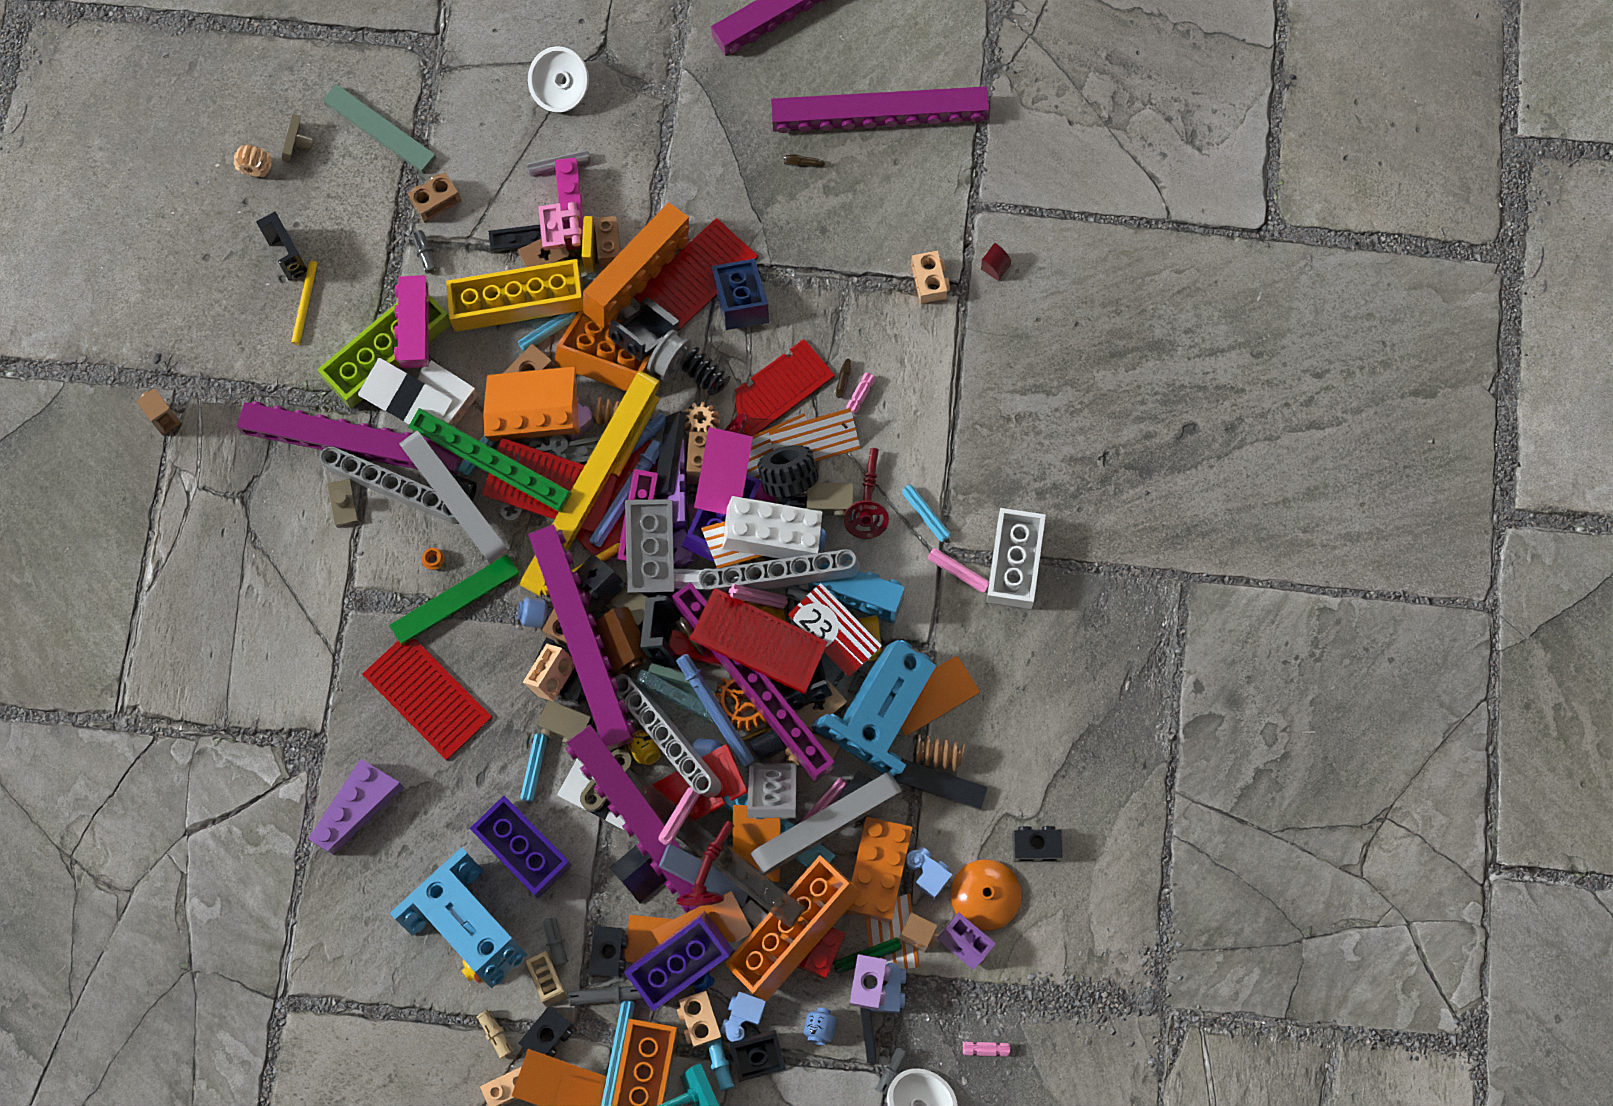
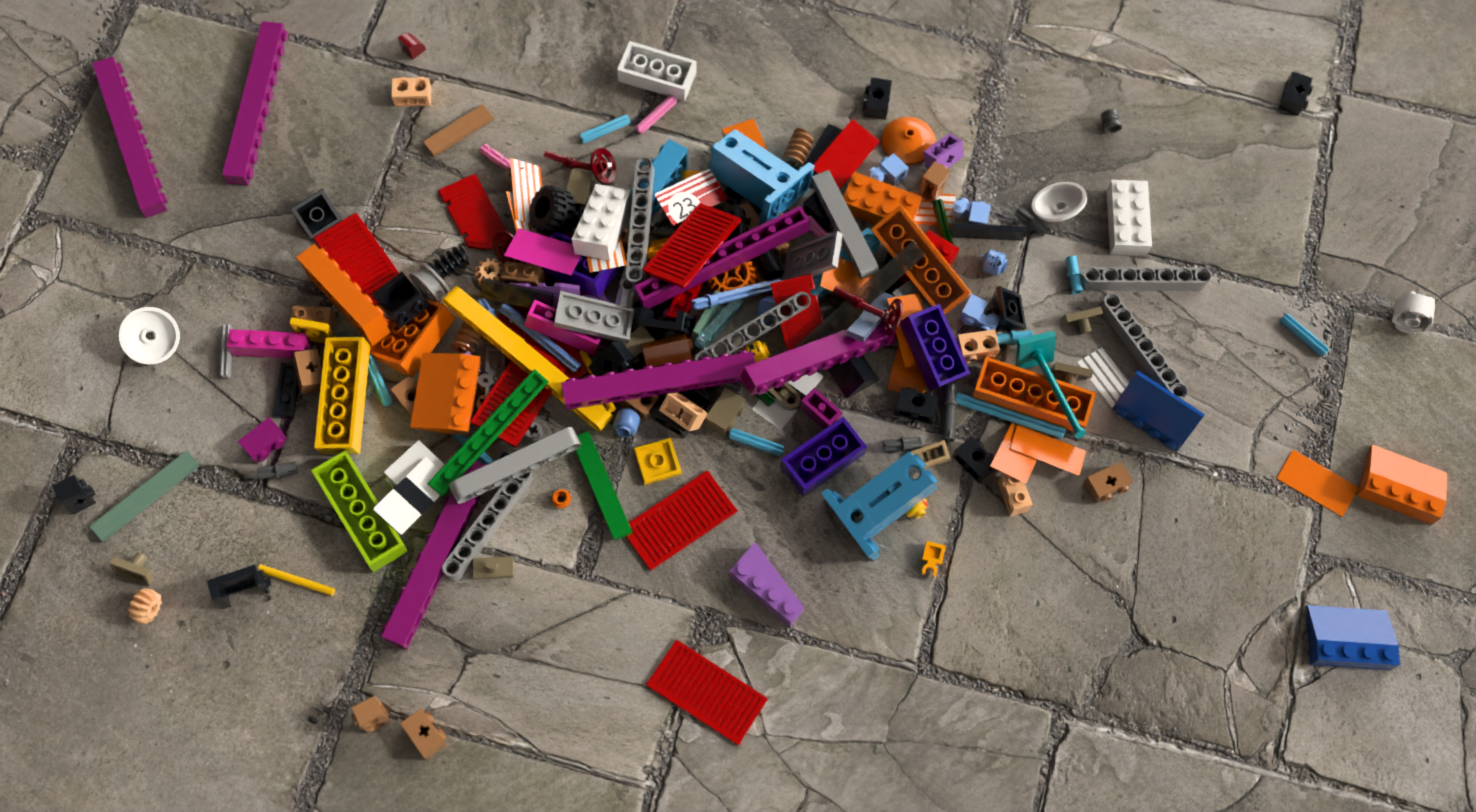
camera: 85 degrees left, 5 degrees down
(137, 472) = (414, 727): none -> medium nougat brick
(228, 762) = (707, 692): none -> red window
(363, 58) = (74, 494): none -> black brick
(412, 321) = (347, 475): dark pink brick -> none
(417, 997) = (933, 556): none -> light orange plate
(437, 201) = (230, 453): medium nougat brick -> none
(455, 228) = (263, 440): none -> magenta brick
(494, 657) = (657, 461): none -> yellow tile
(494, 1033) = (969, 500): tan pin -> none
(552, 225) = (291, 351): bright pink plate -> none
(579, 835) = (820, 409): none -> magenta brick
(678, 816) = (822, 324): bright pink axle -> none
(687, 630) = (669, 302): dark brown piece -> none
(740, 294) = (388, 226): dark blue slope -> none
(742, 212) = (315, 214): none -> black slope
(758, 596) = (653, 244): bright pink axle -> none
(795, 160) = (280, 170): dark brown piece -> none
(843, 378) = (477, 167): dark brown piece -> none
(869, 967) = (959, 220): lavender brick -> none
(889, 343) = (458, 130): none -> medium nougat tile
(943, 814) = (846, 153): none -> red tile
(986, 1049) = (1022, 159): bright pink axle -> none

